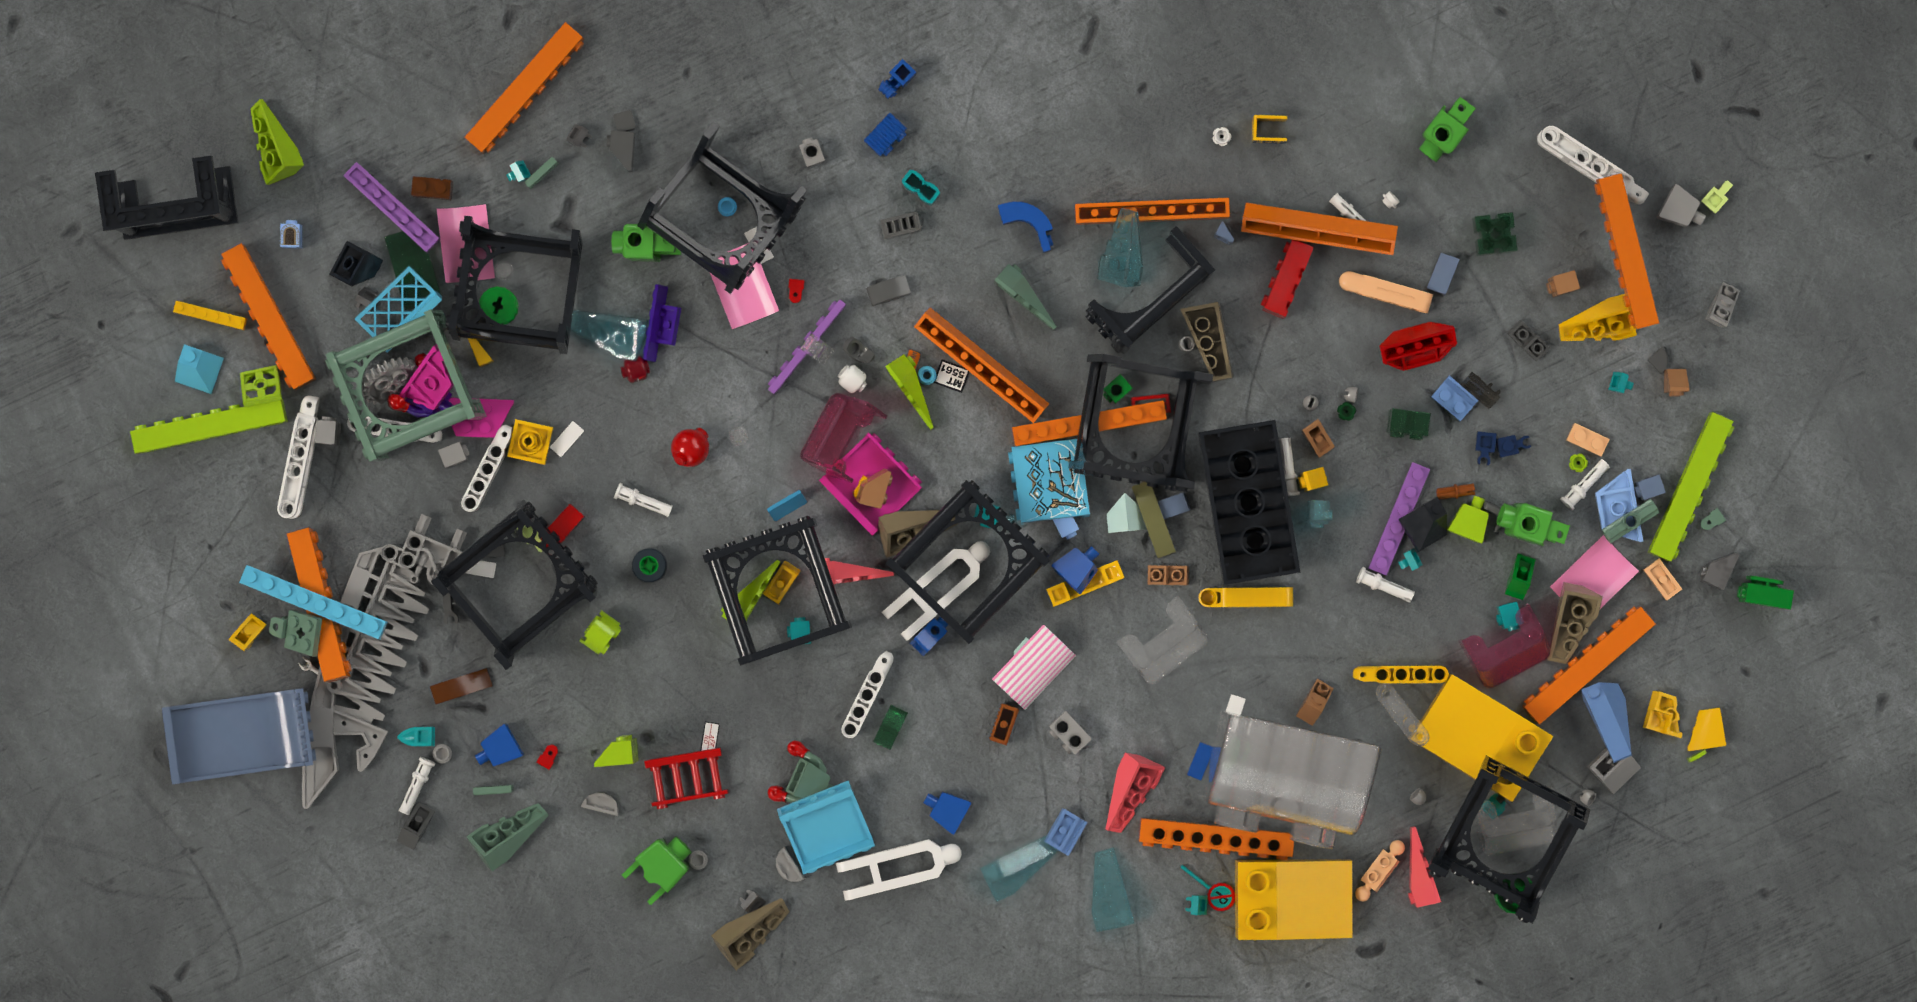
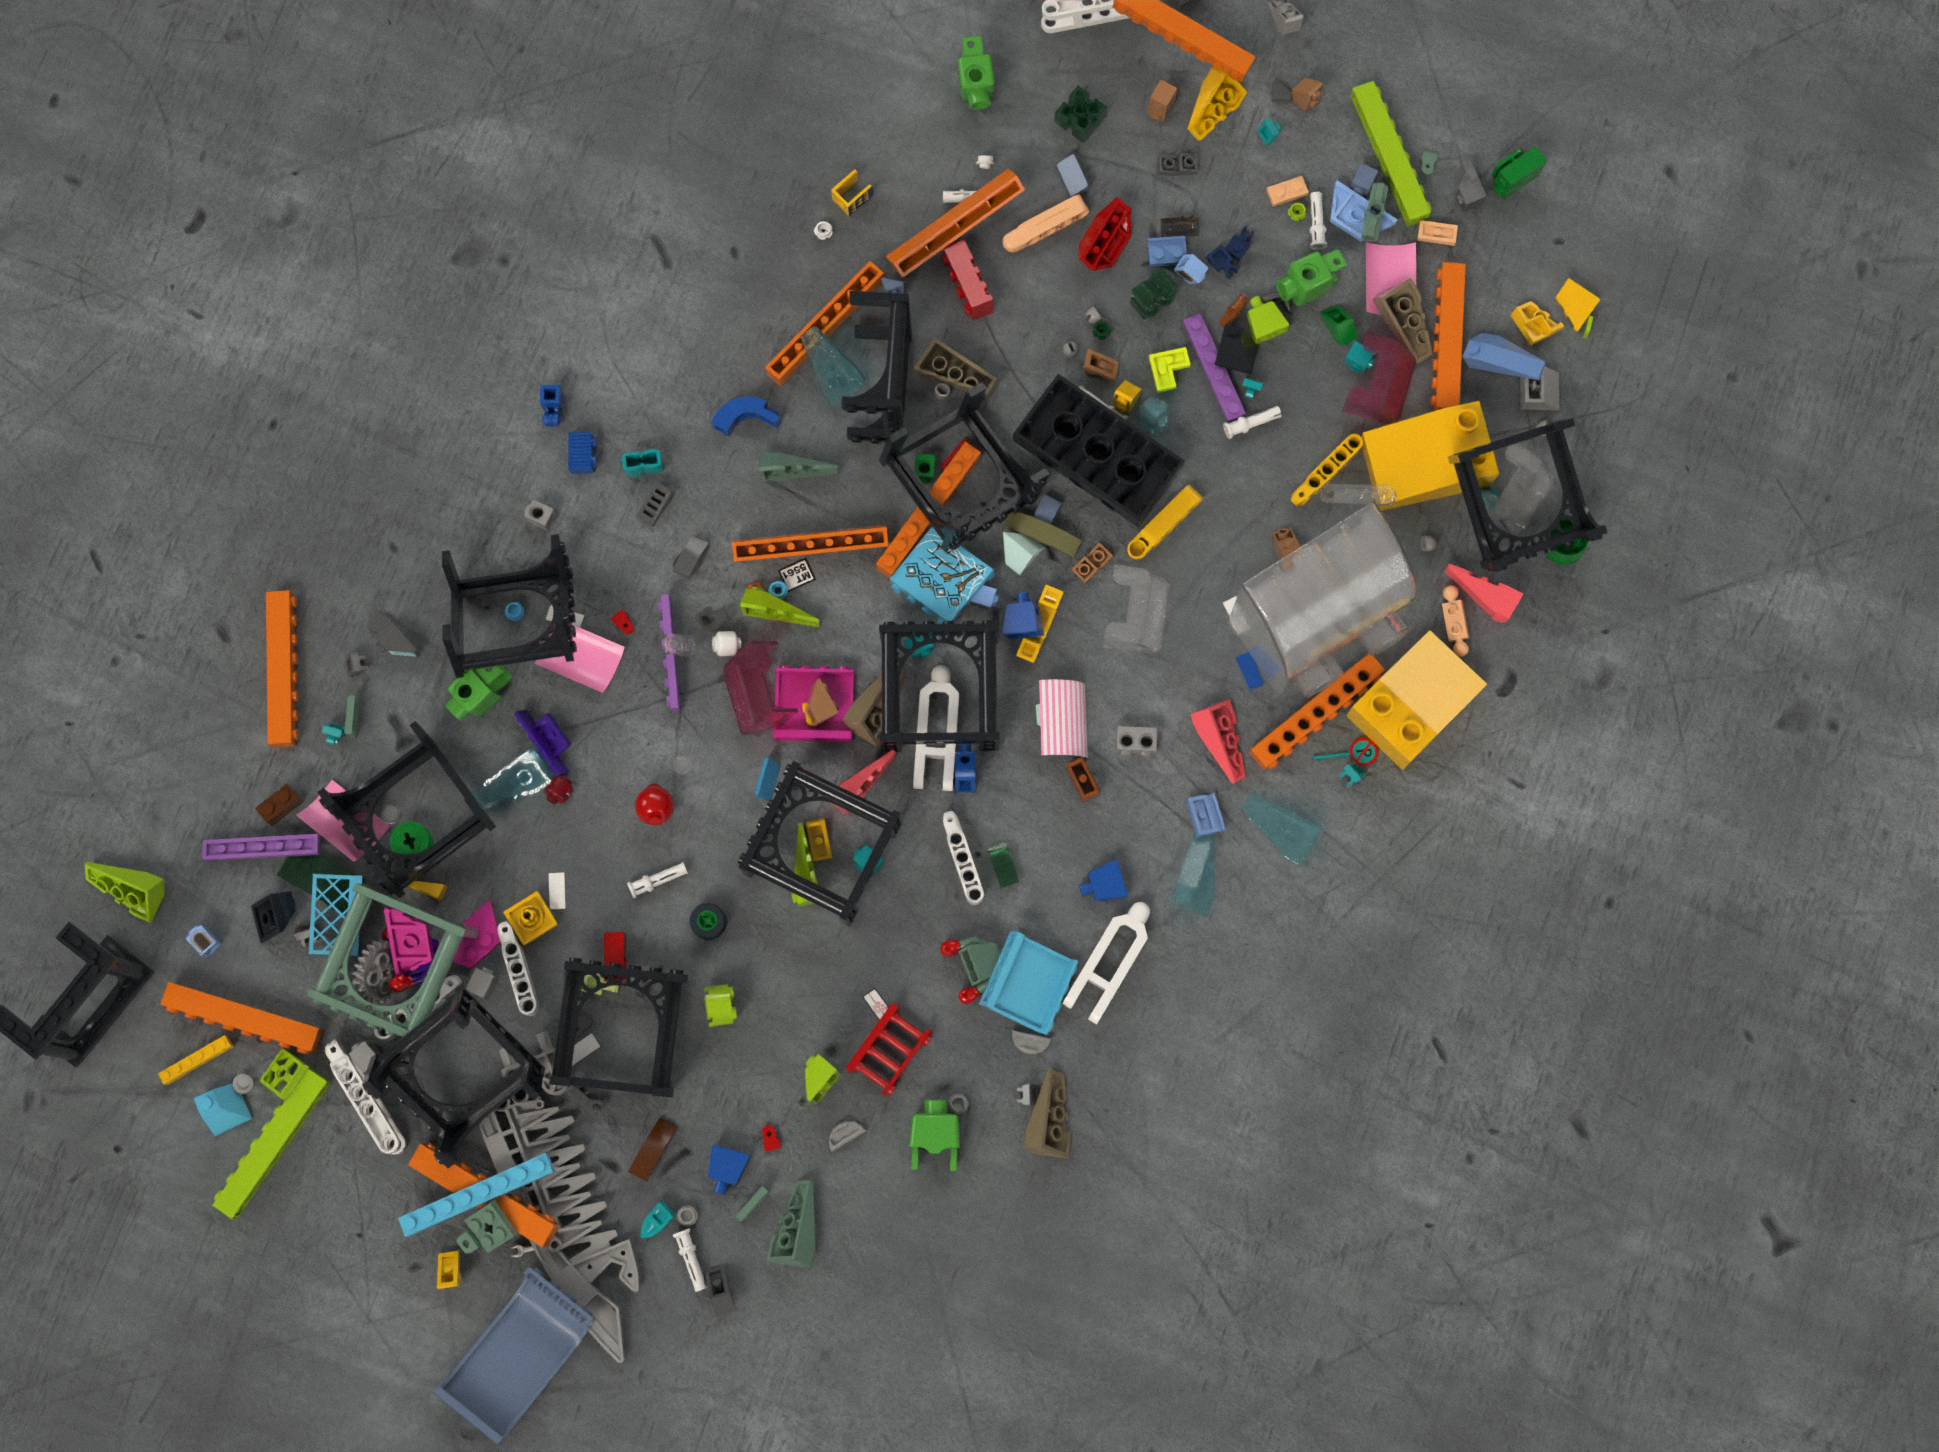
camera: 45 degrees left, 10 degrees down
(226, 364) = (242, 1084): none -> light grey plate
(337, 543) = (452, 1133): none -> black arch
(1363, 481) = (1163, 366): none -> neon yellow plate
(1455, 431) = (1191, 269): none -> light blue brick

